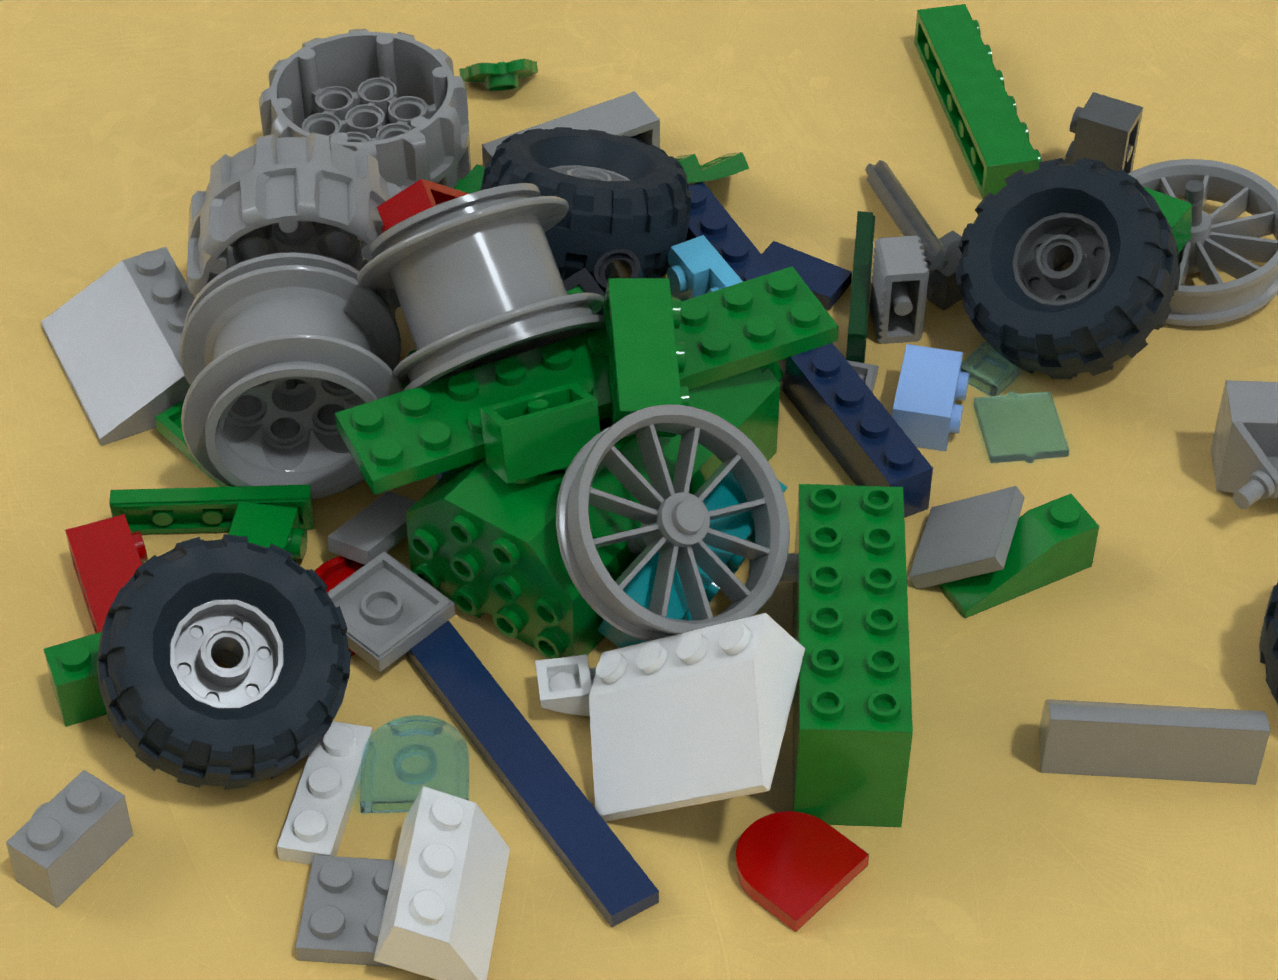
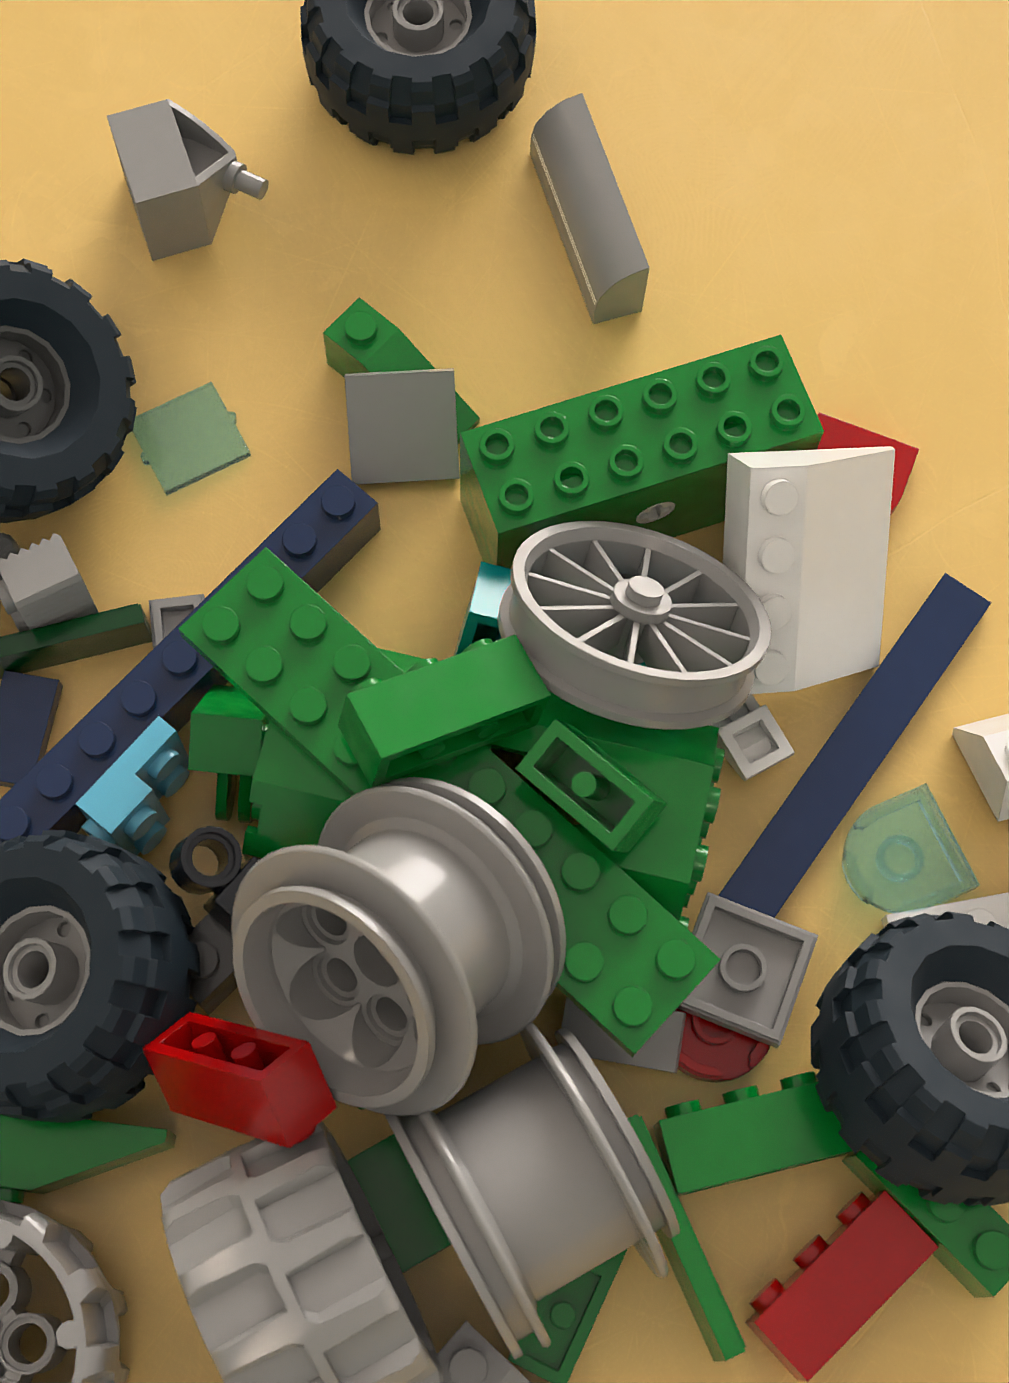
camera: 115 degrees left, 25 degrees up
(928, 395) = (194, 527): light blue brick -> none
(989, 370) = (119, 491): clear light blue tile -> none

